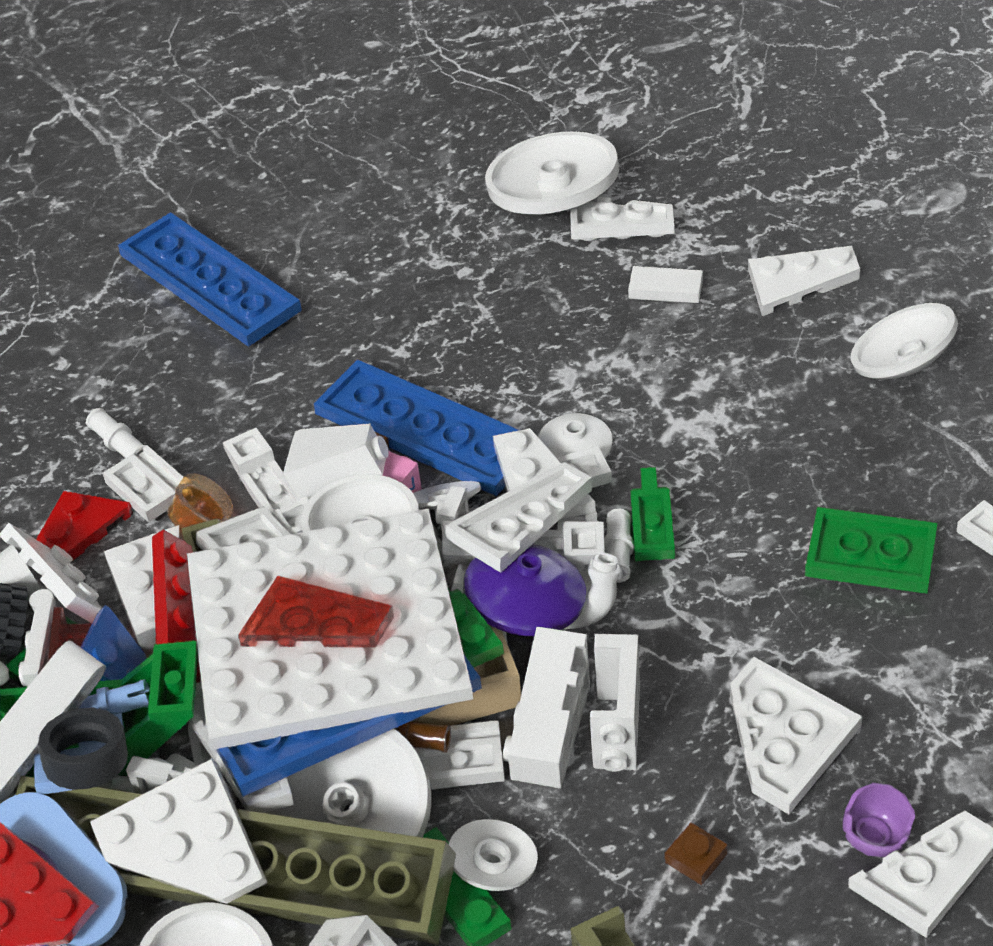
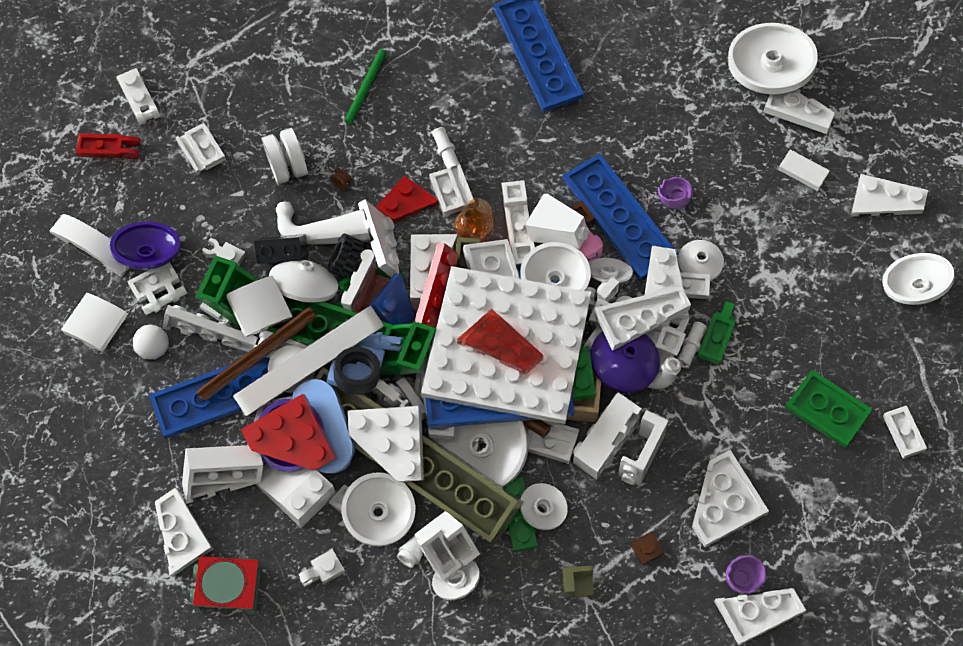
camera: 20 degrees right, 20 degrees up
(495, 368) = (675, 192): none -> medium lavender hair

